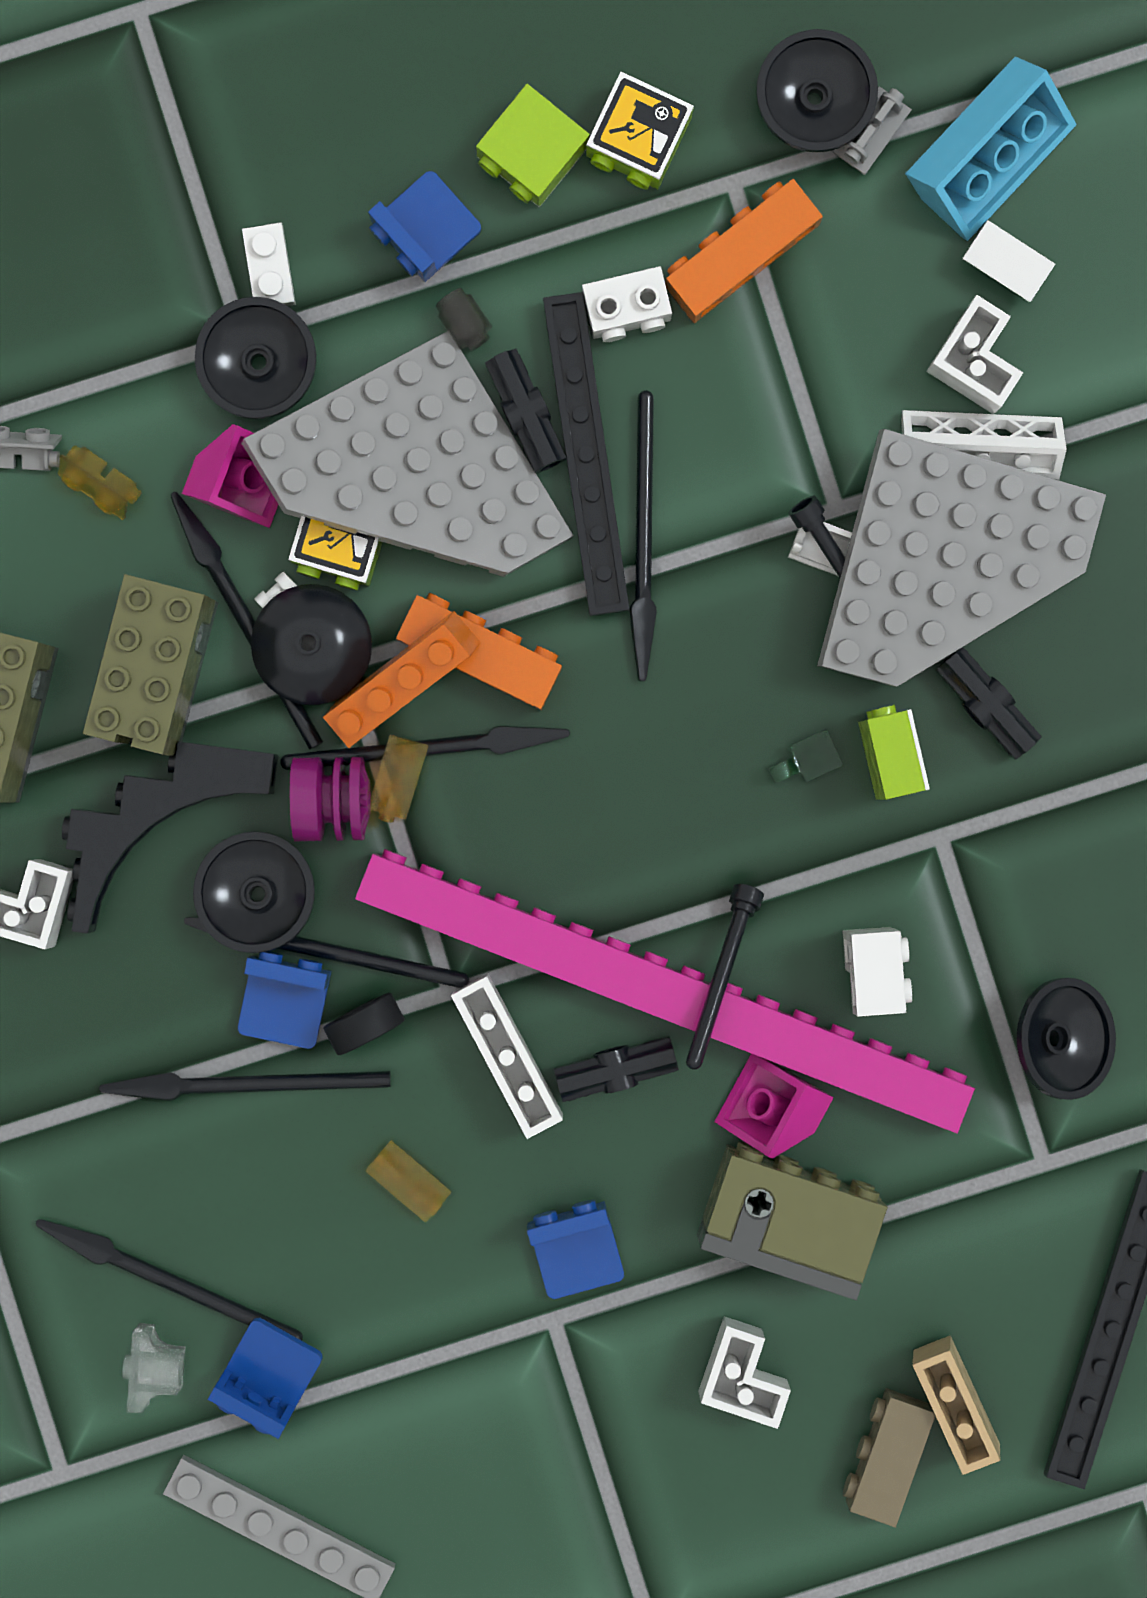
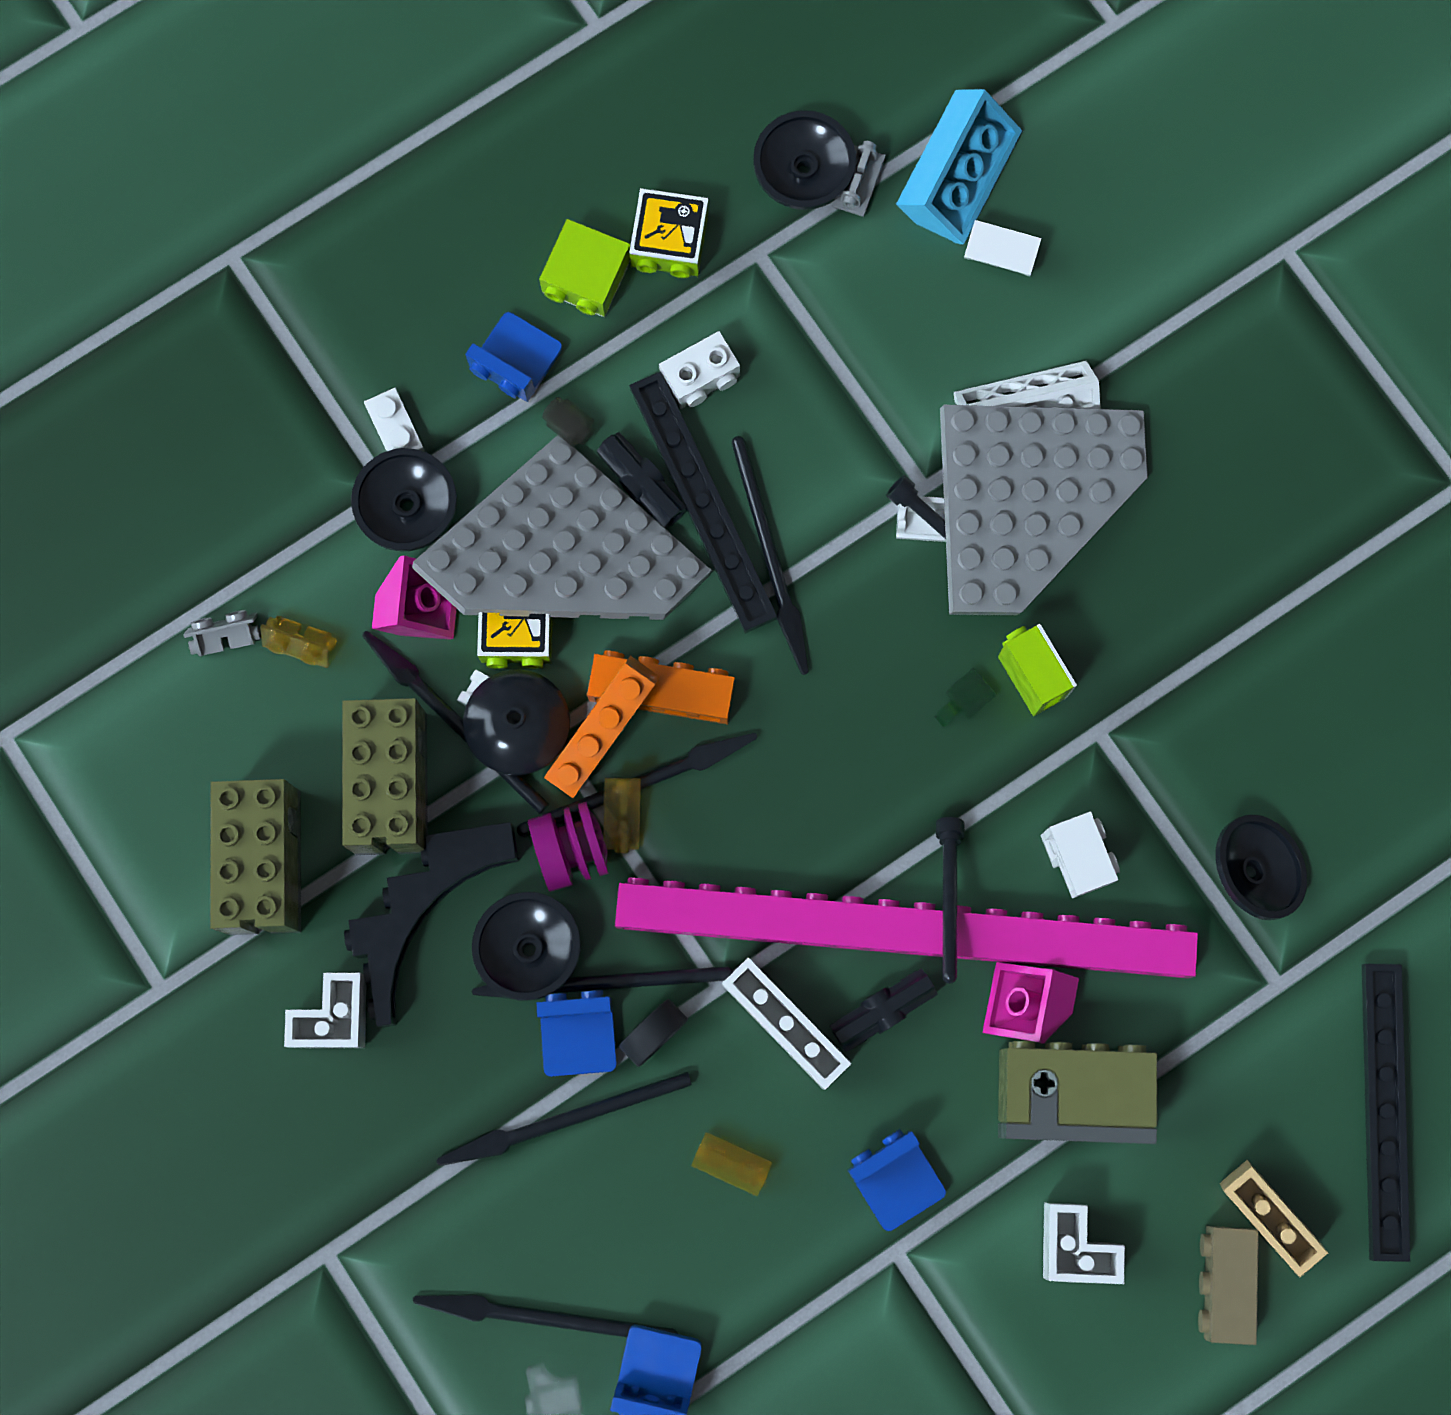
camera: 15 degrees left, 10 degrees down
(743, 250) = (782, 302): orange brick -> none
(967, 362) = (996, 337): white brick -> none
(988, 703) = (1102, 607): black piece -> none

